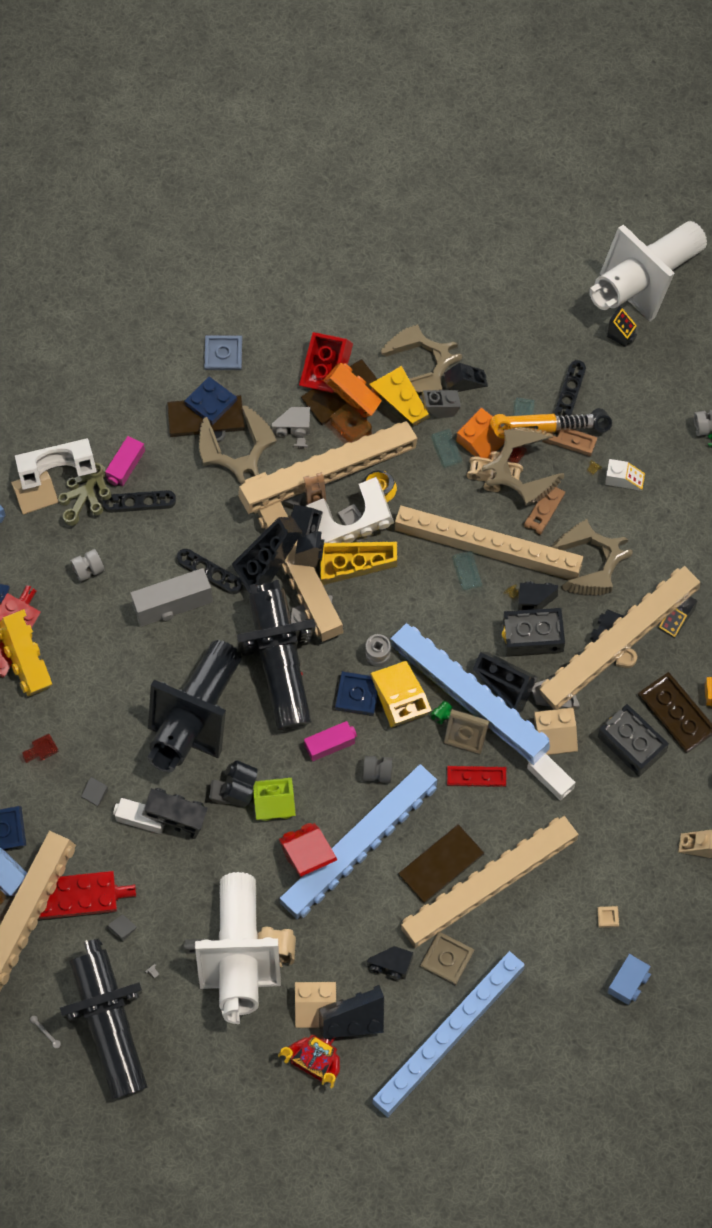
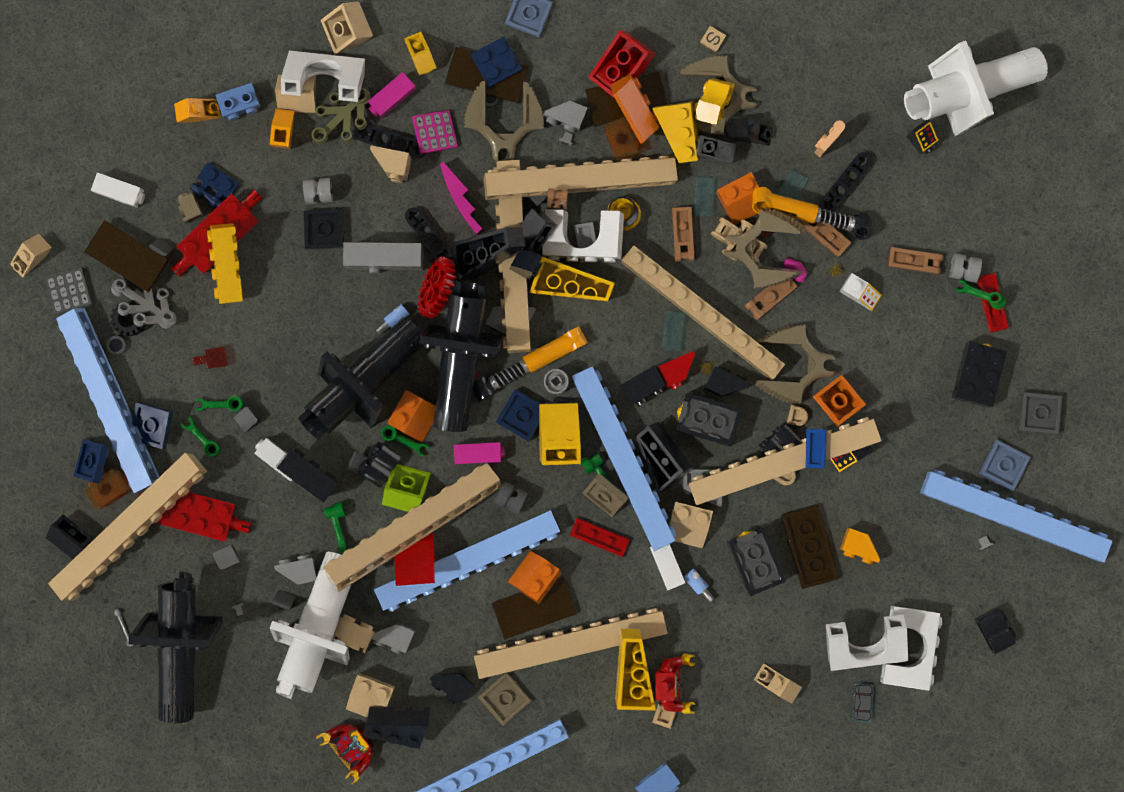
camera: 25 degrees right, 20 degrees up
(33, 525) = (282, 129): none -> light orange slope
(60, 419) = (346, 27): none -> tan slope
(66, 827) = (208, 445): none -> green brick
(75, 778) = (230, 404): none -> green brick
(105, 597) = (323, 229): none -> black plate
(138, 417) = (420, 53): none -> yellow slope
(147, 514) = (393, 162): none -> tan slope
(177, 478) = (434, 132): none -> tile
(199, 911) = (298, 571): none -> light grey slope
(200, 651) = (392, 318): none -> light blue piece
(213, 847) = (334, 513): none -> green brick
(220, 523) = (458, 193): none -> dark pink slope
(232, 603) = (436, 287): none -> red gear
(237, 747) = (403, 439): none -> green brick
(254, 730) = (413, 416): none -> orange slope
(294, 822) = (412, 527): none -> tan brick
(319, 935) = (395, 636): none -> light grey slope
(347, 643) = (531, 362): none -> piece
(399, 317) = (713, 39): none -> tan tile
(421, 361) = (712, 103): none -> yellow brick
(431, 831) = (534, 577): none -> orange slope
(441, 484) = (683, 233): none -> medium nougat plate
(460, 625) = (642, 386): none -> black brick
(484, 602) = (676, 370): none -> red slope
(538, 359) = (826, 141): none -> light nougat plate
(561, 880) = (633, 679): none -> yellow wedge
(564, 483) = (796, 265): none -> dark pink arm
(588, 783) = (698, 584): none -> light blue piece
(601, 883) = (669, 684): none -> red torso
(614, 602) = (797, 416): none -> tan tile
(643, 610) = (815, 448): none -> blue tile
(647, 568) = (839, 400): none -> orange slope
(661, 433) = (914, 260): none -> medium nougat plate

